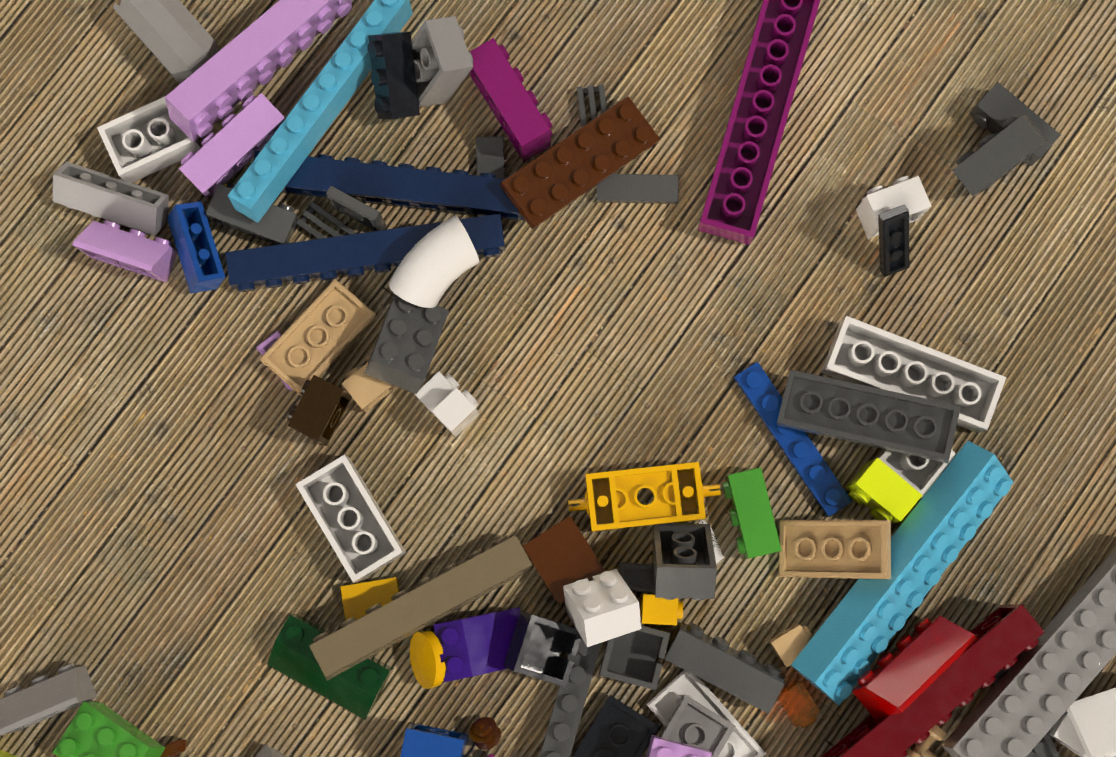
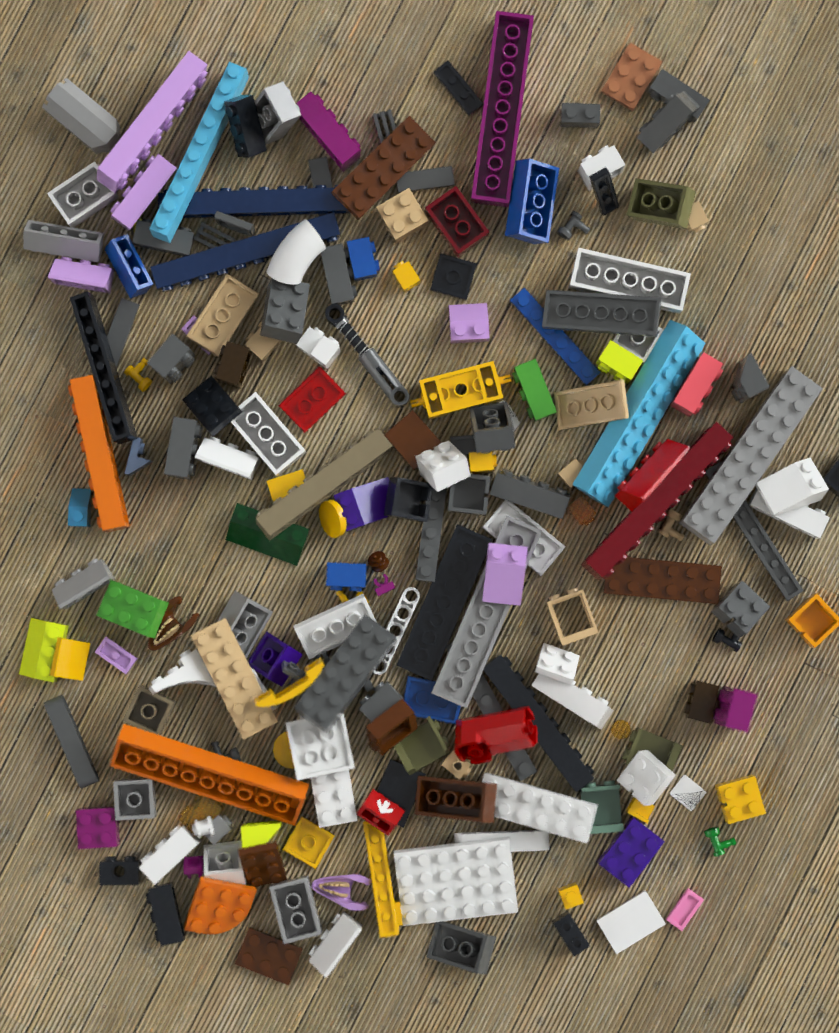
camera: 15 degrees left, 5 degrees up
(63, 585) = (80, 508): none -> dark azure slope
(102, 511) = (99, 454): none -> orange brick
(131, 388) = (103, 368): none -> black brick
(153, 529) = (135, 463): none -> sand blue slope
(164, 345) = (121, 327): none -> dark grey tile
(188, 417) = (133, 372): none -> yellow piece
(225, 522) = (183, 448): none -> dark grey brick
(229, 389) = (172, 359): none -> dark grey brick
(278, 466) = (212, 405): none -> black plate
(288, 544) = (228, 457): none -> white slope
(427, 477) = (312, 399): none -> red tile
(492, 304) = (338, 274): none -> dark grey brick
(517, 428) = (368, 357): none -> piece
(530, 286) = (362, 258): none -> blue brick
(589, 320) = (406, 276): none -> yellow brick
(597, 233) = (402, 215): none -> tan brick
(657, 331) = (453, 277): none -> black tile
(670, 401) = (469, 323): none -> lavender slope
(674, 253) = (457, 221): none -> dark red brick
(702, 70) = (458, 88): none -> black tile
(786, 240) = (532, 201): none -> blue brick
(827, 291) = (565, 232): none -> dark grey piece
(871, 130) = (580, 115): none -> dark grey brick
(949, 88) = (631, 76): none -> nougat plate
(974, 270) = (661, 203): none -> olive brick
(996, 542) = (697, 385): none -> coral brick
(1016, 298) = (697, 218): none -> tan brick
(1074, 547) = (748, 380): none -> dark grey slope

